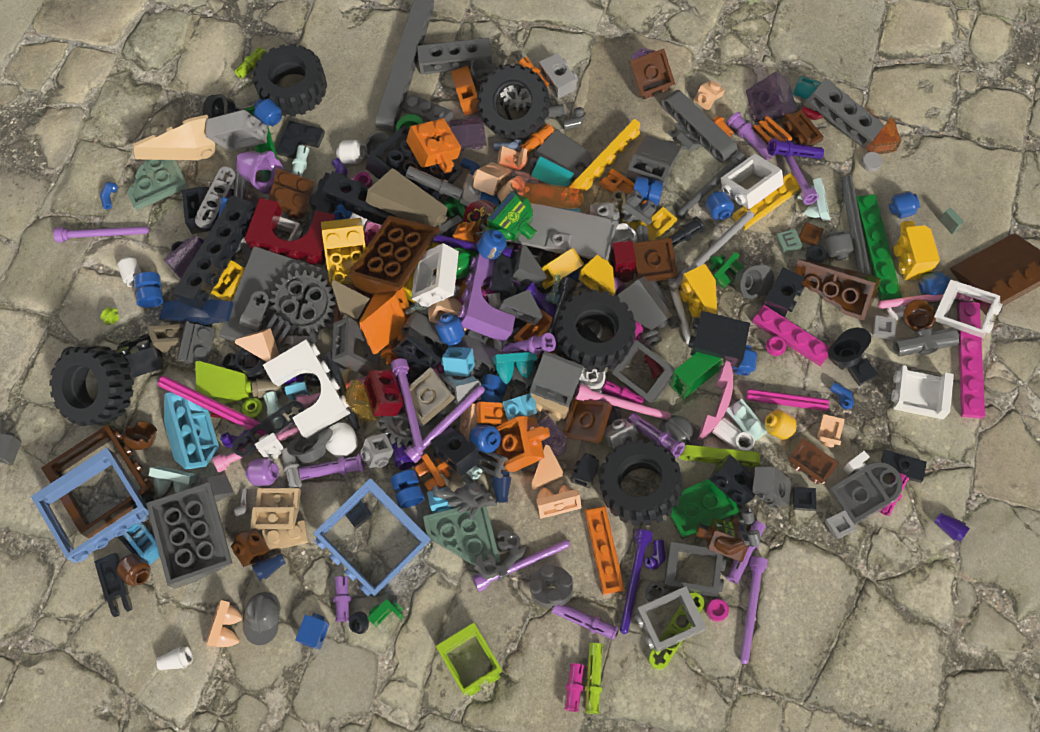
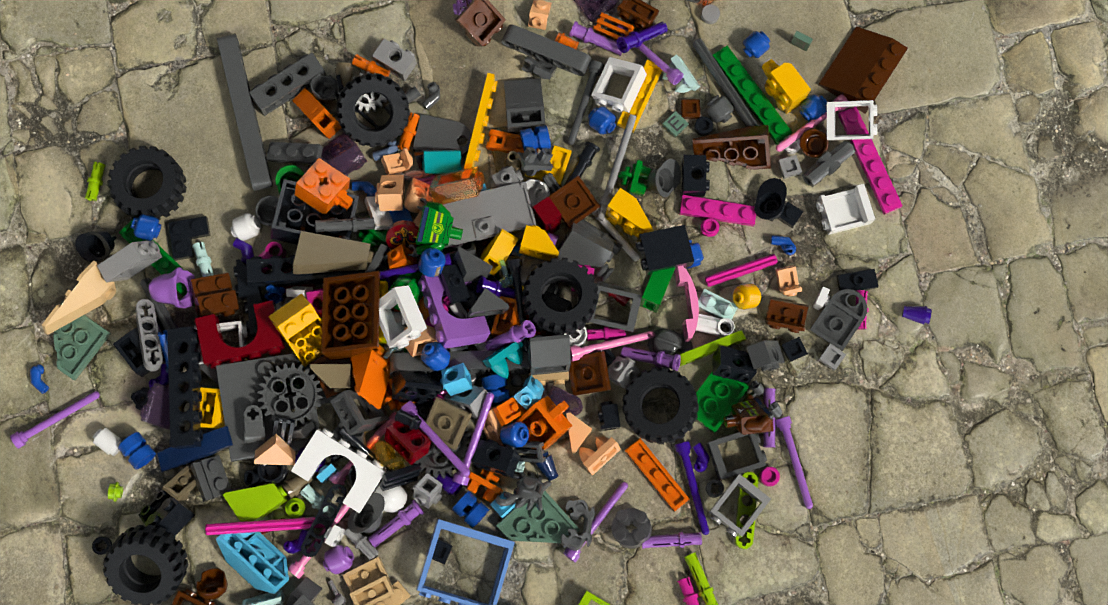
camera: 35 degrees left, 10 degrees up
(358, 423) = (400, 477): none -> black tile
(395, 376) = (407, 419): none -> black pin

